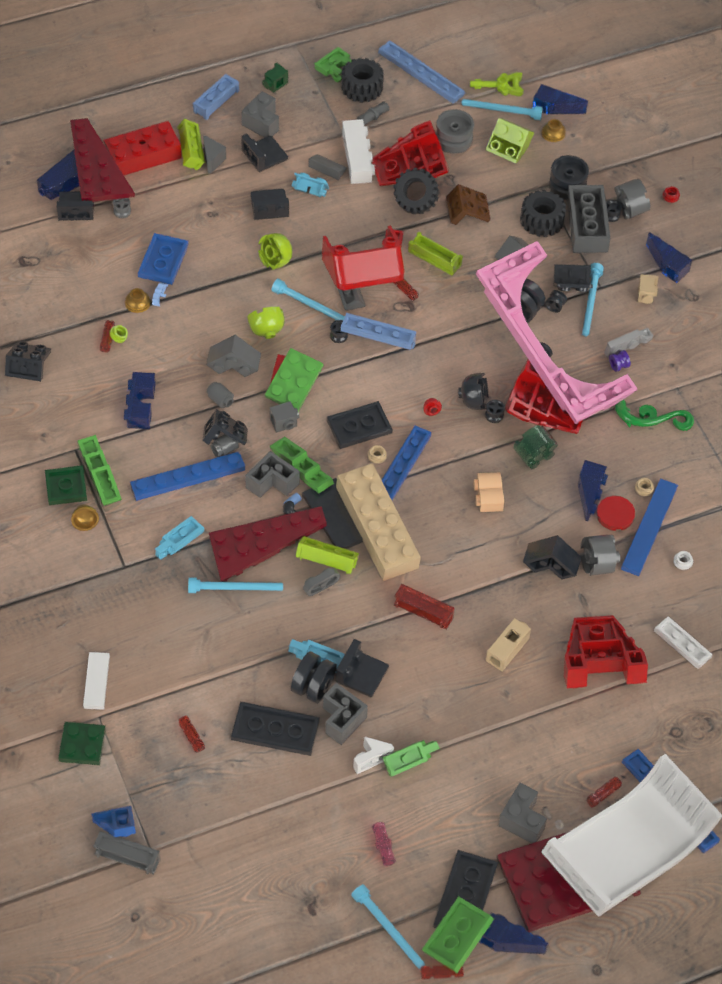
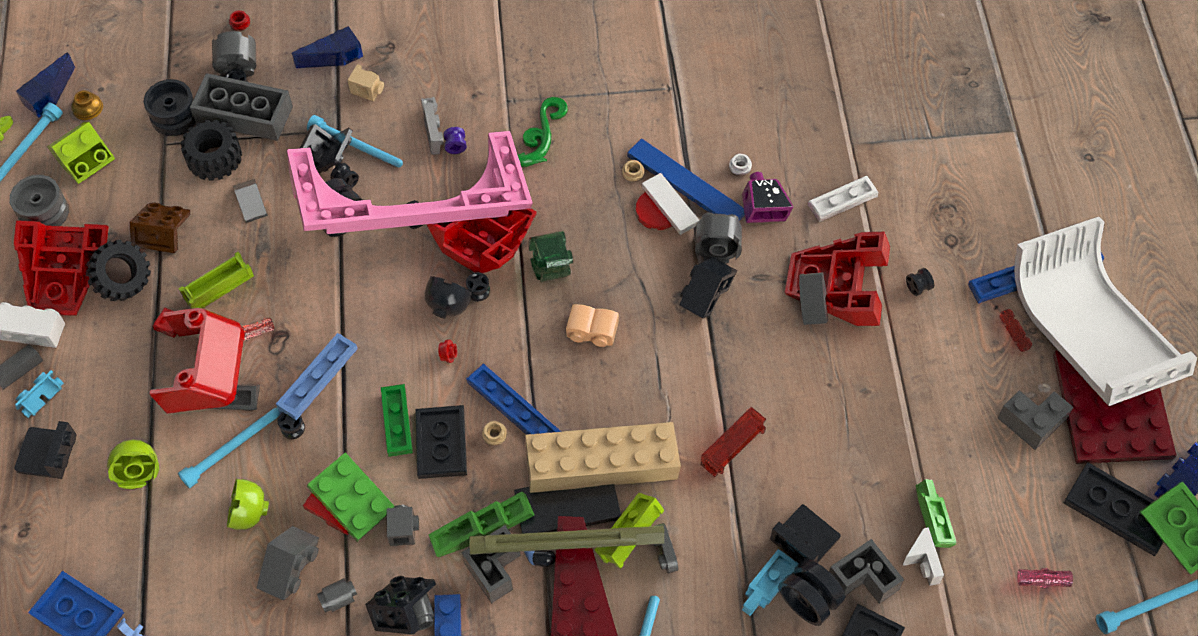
camera: 70 degrees left, 5 degrees up
(300, 512) = (567, 540): none -> olive piece
(365, 392) = (396, 420): none -> green plate
(508, 644) = (808, 367): tan brick -> none
(572, 629) = (813, 298): none -> dark grey slope
(589, 485) = (618, 222): clear blue slope -> none
(620, 710) = (920, 281): none -> black wheel
(621, 515) = (670, 203): none -> white tile
(651, 580) = (765, 200): none -> torso

